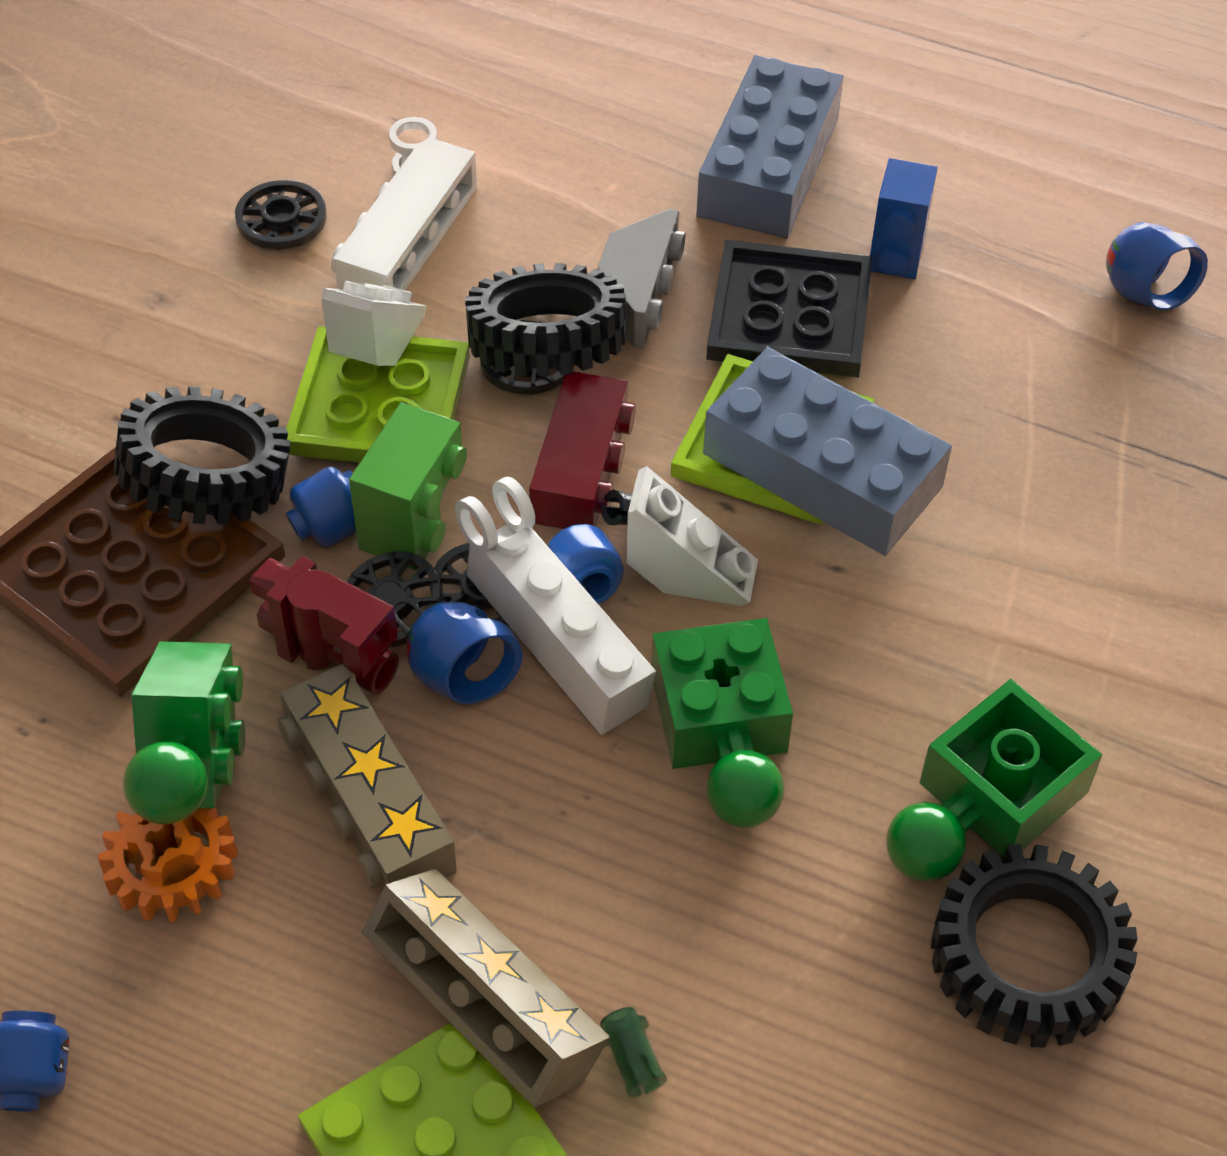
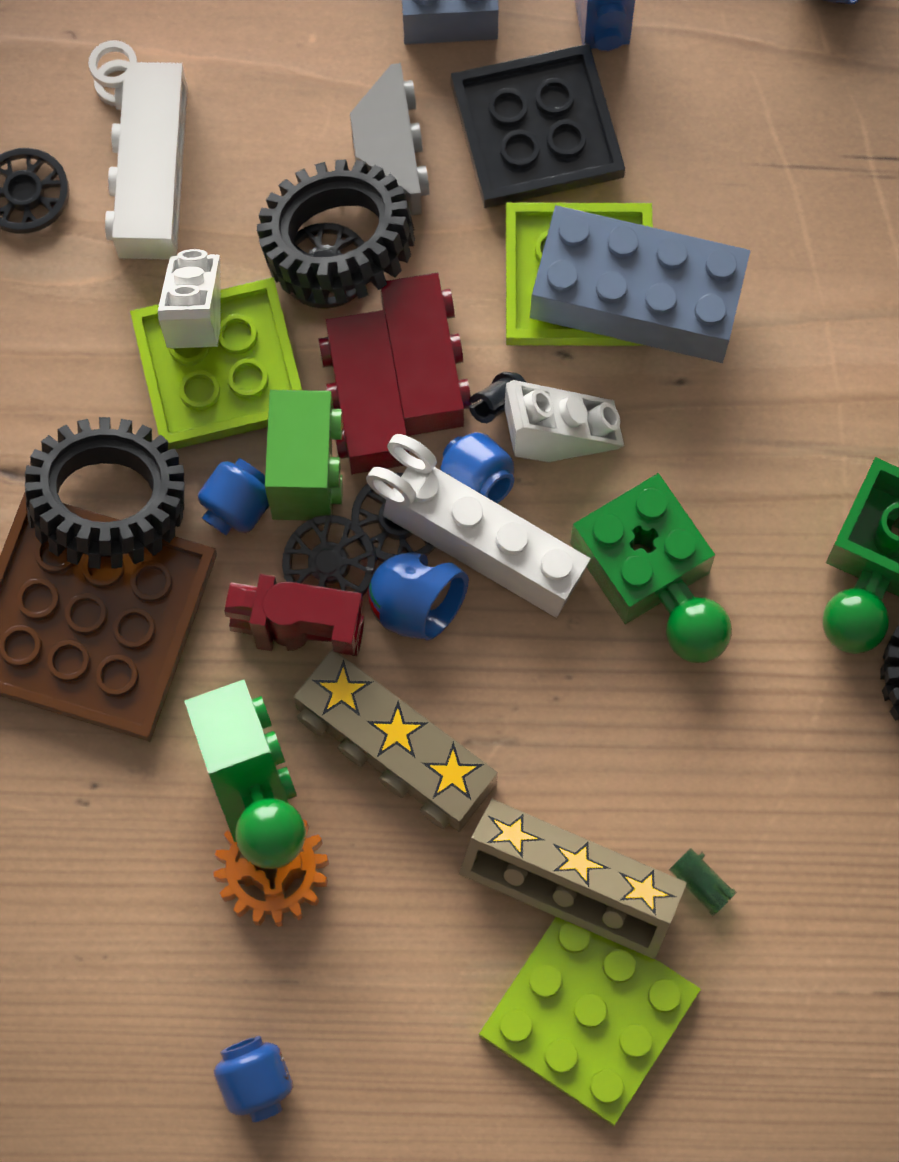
camera: 20 degrees left, 20 degrees up
(507, 446) = (363, 389): none -> dark red brick

